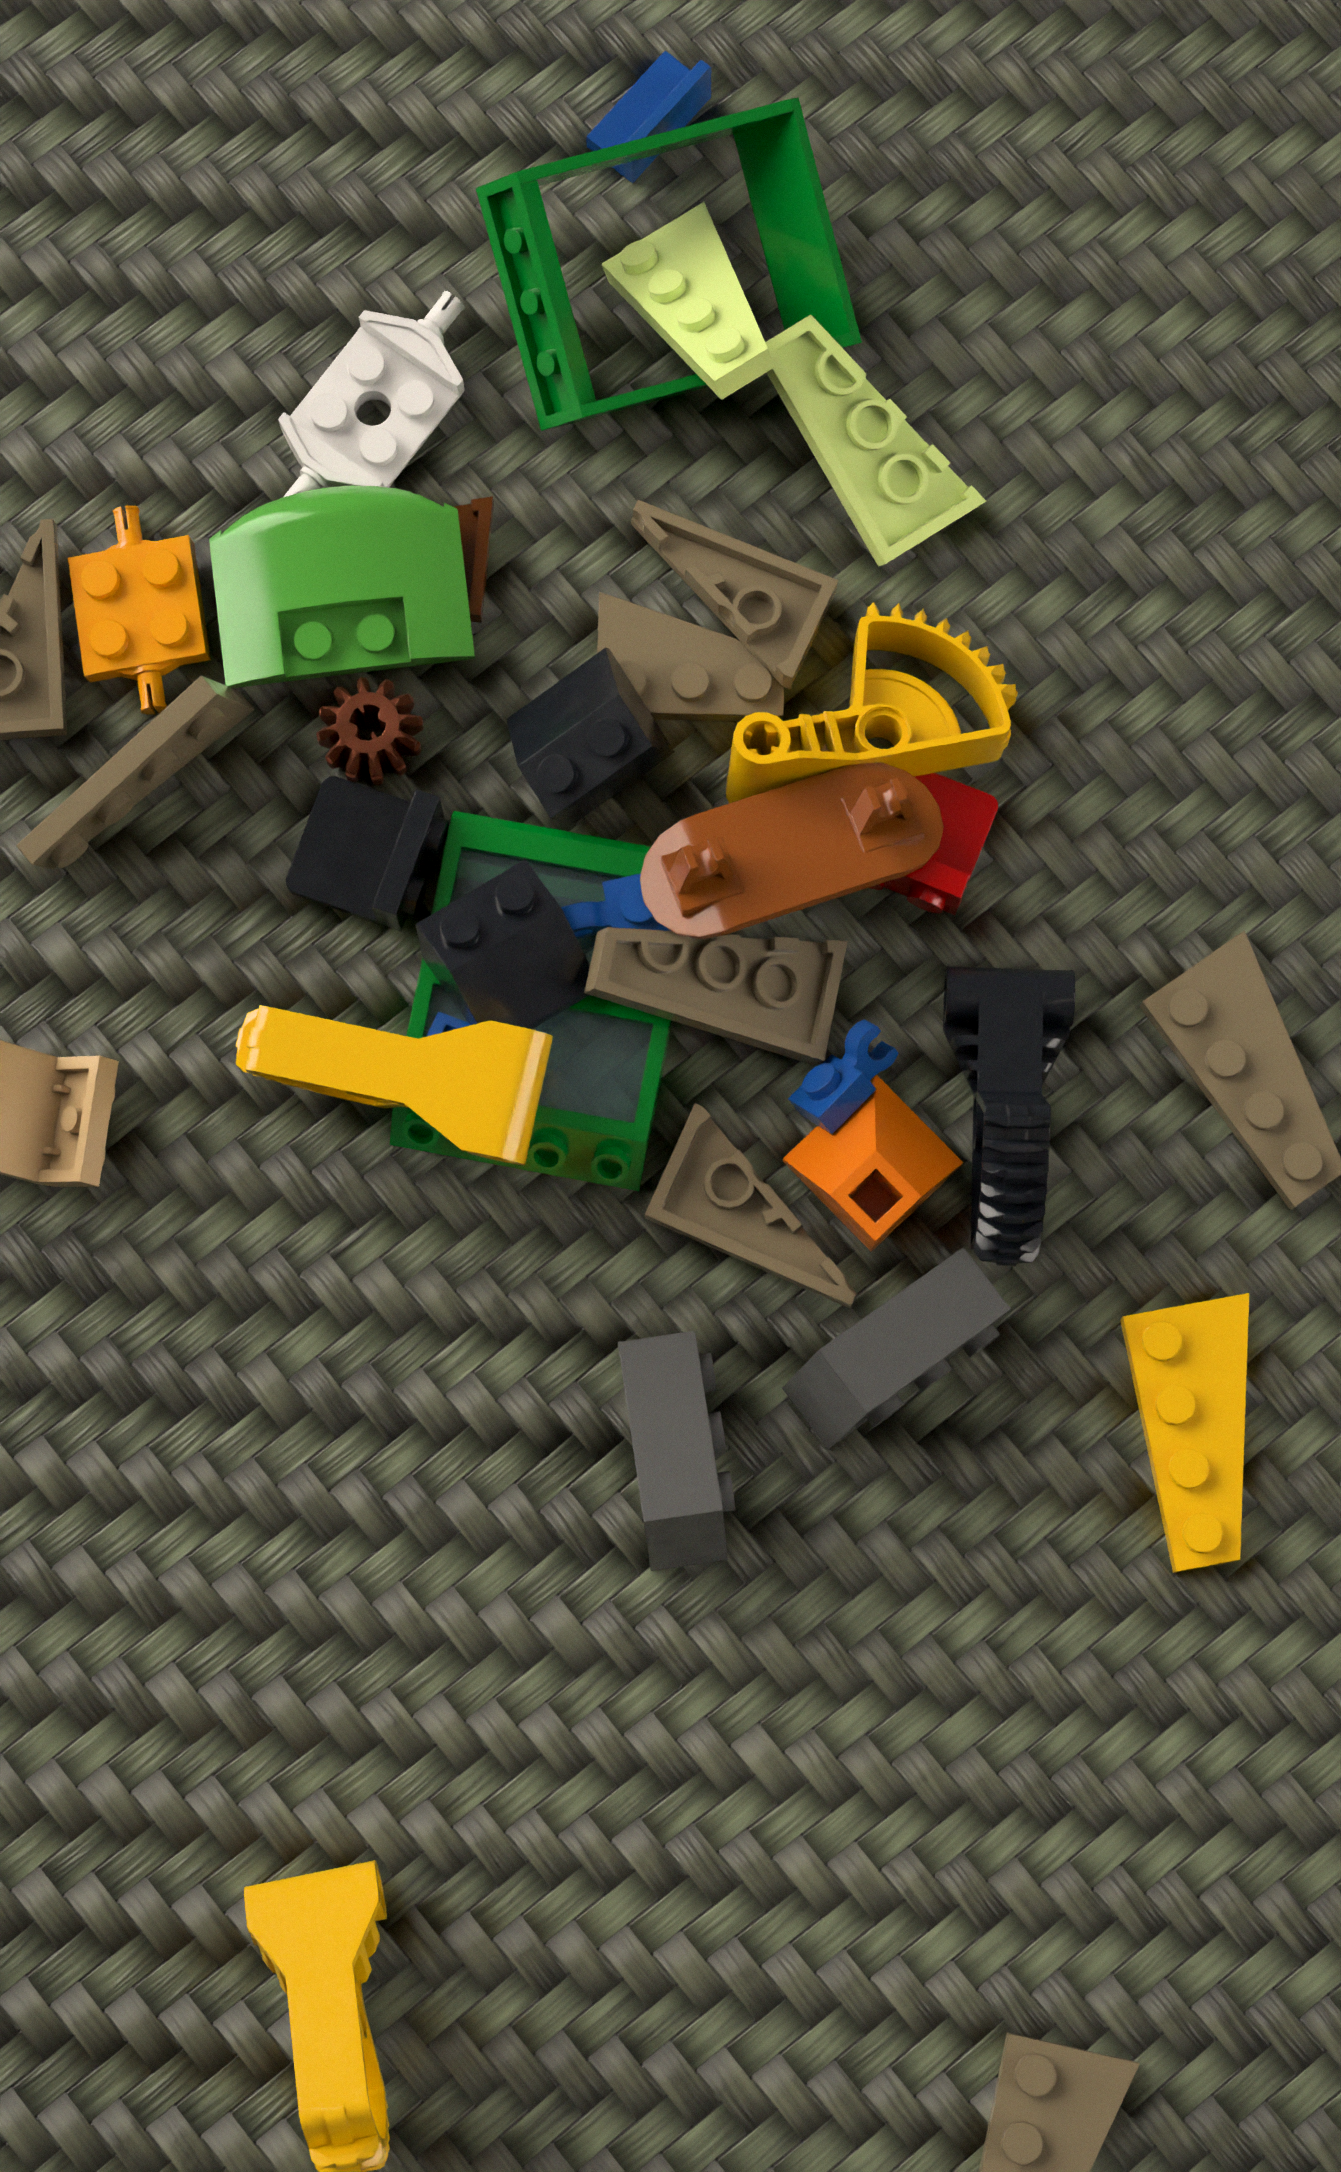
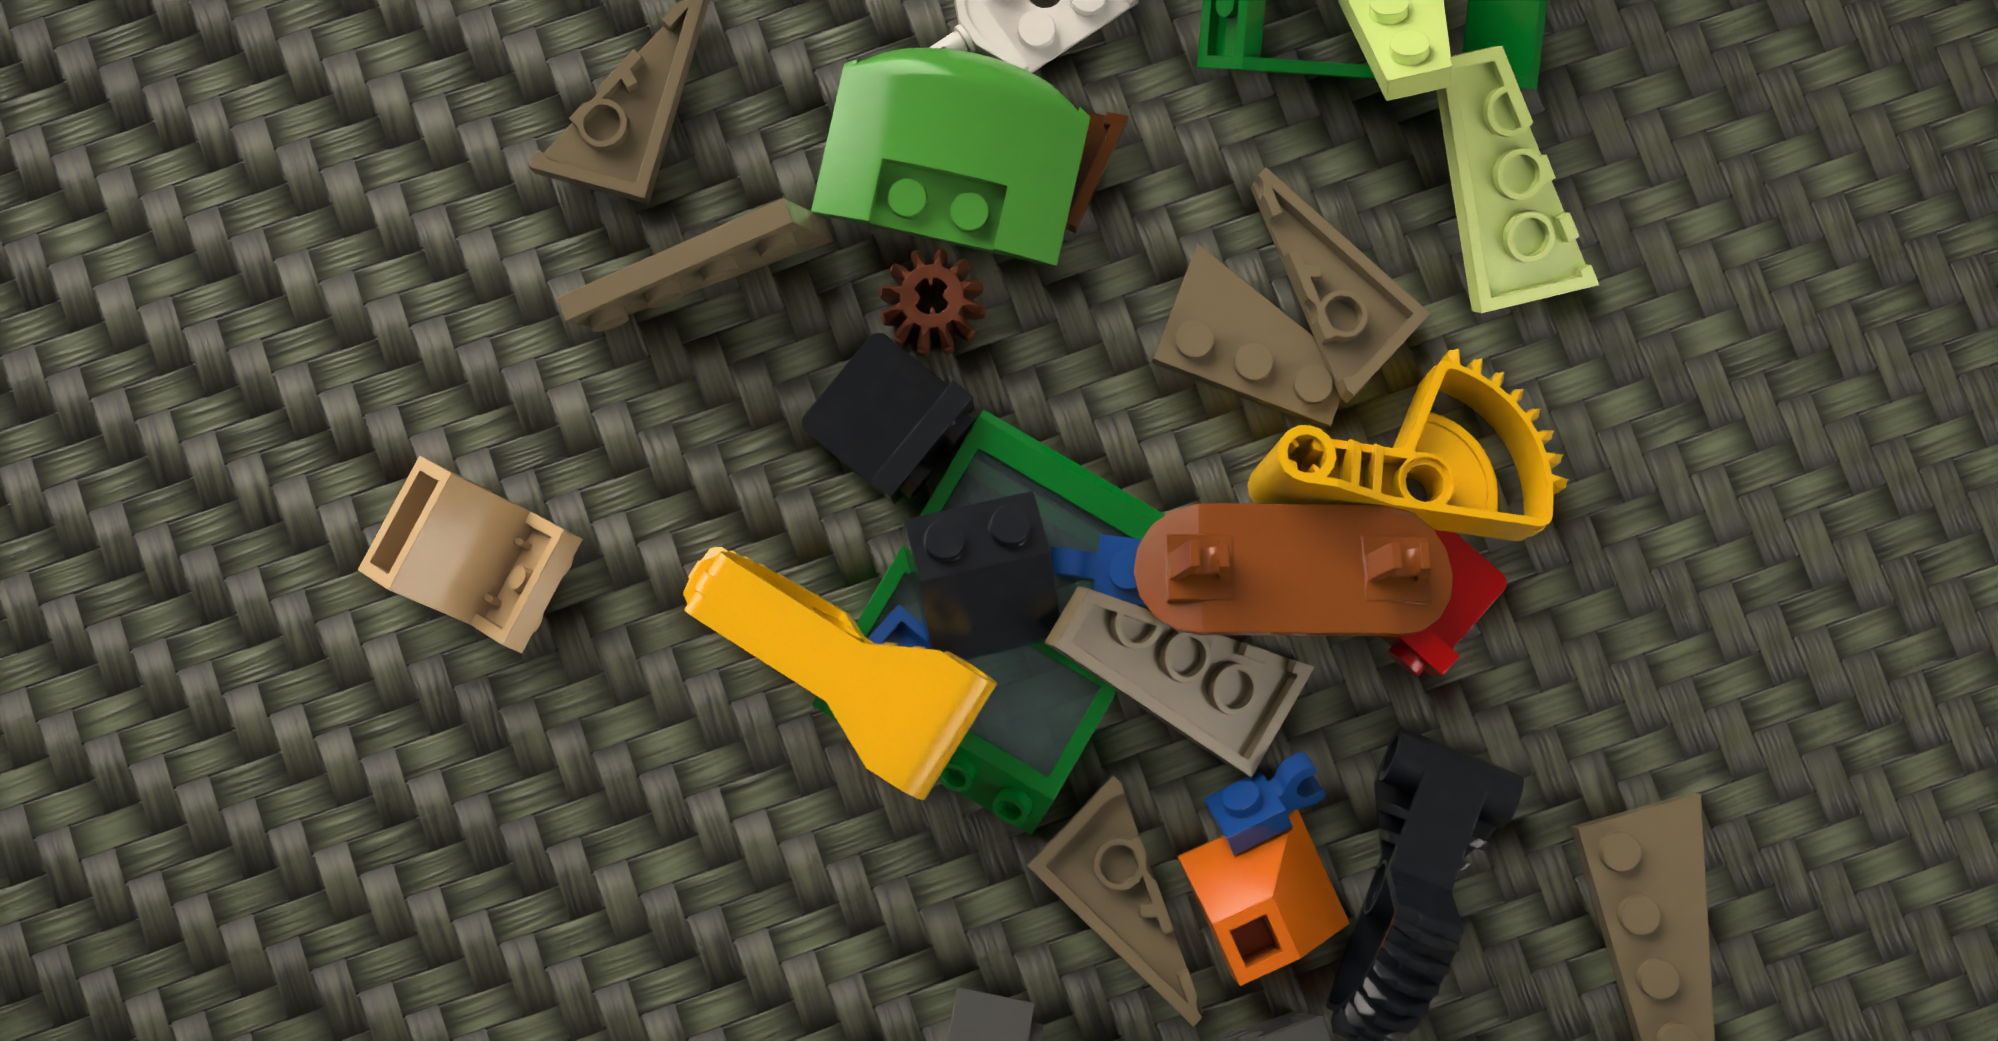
camera: 20 degrees right, 5 degrees up
(139, 609) = (757, 107): light orange plate -> none
(586, 739) = (1133, 382): black slope -> none

